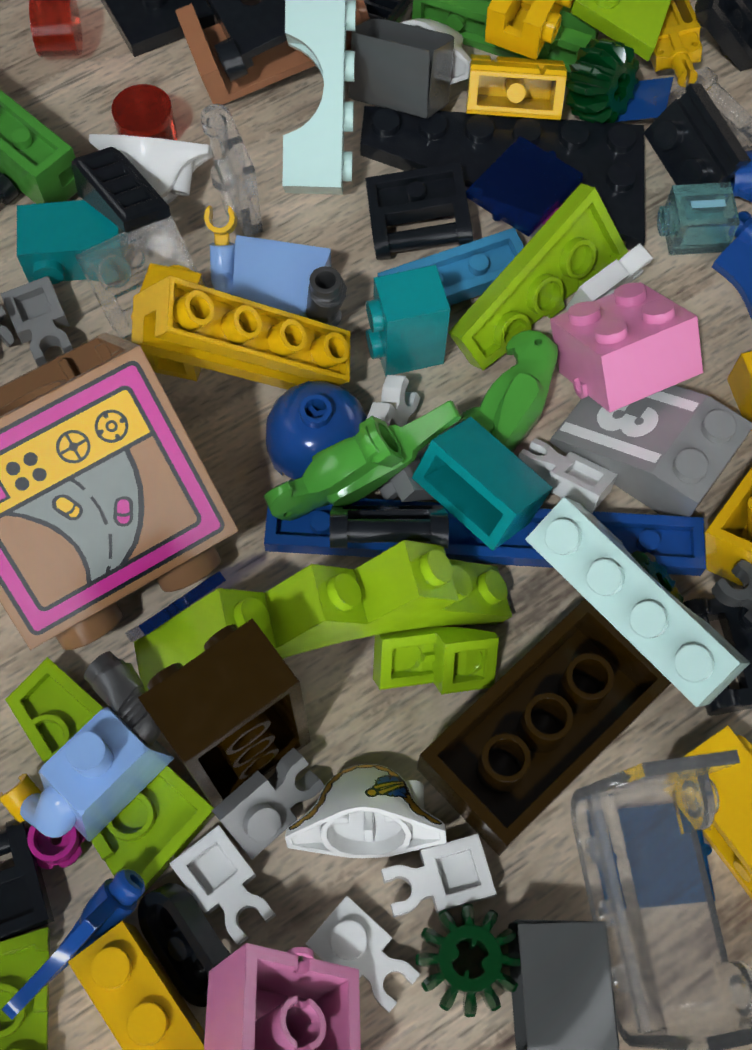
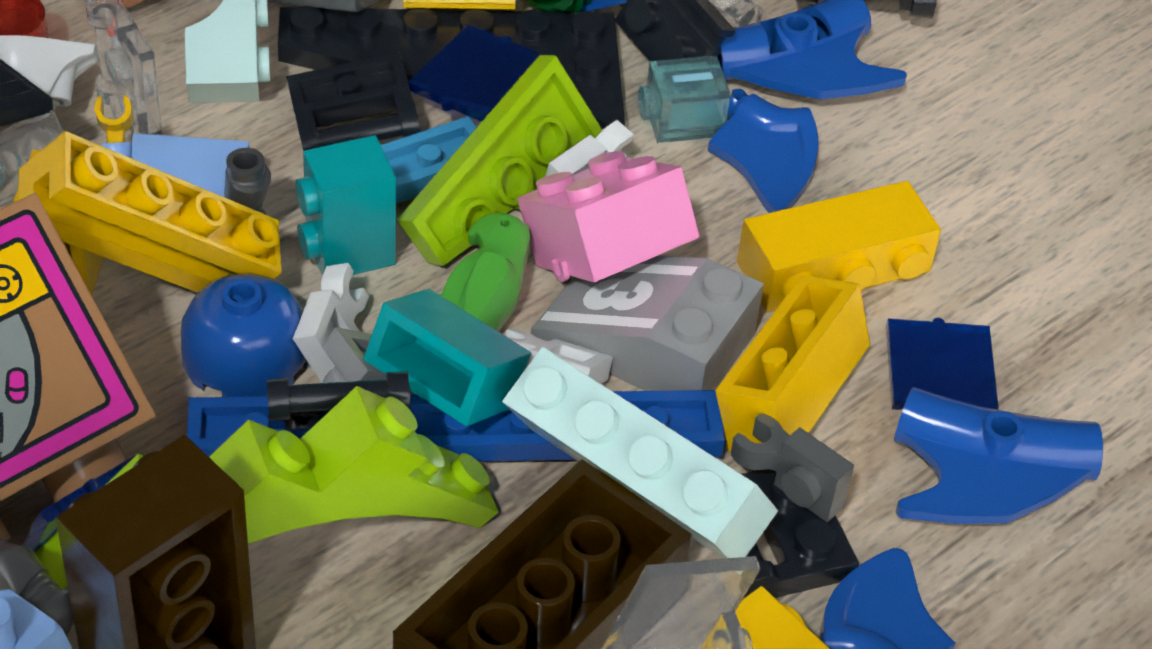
camera: 10 degrees left, 20 degrees down
(358, 464) = (293, 345): bright green animal -> none
(440, 655) = (400, 553): lime slope -> none

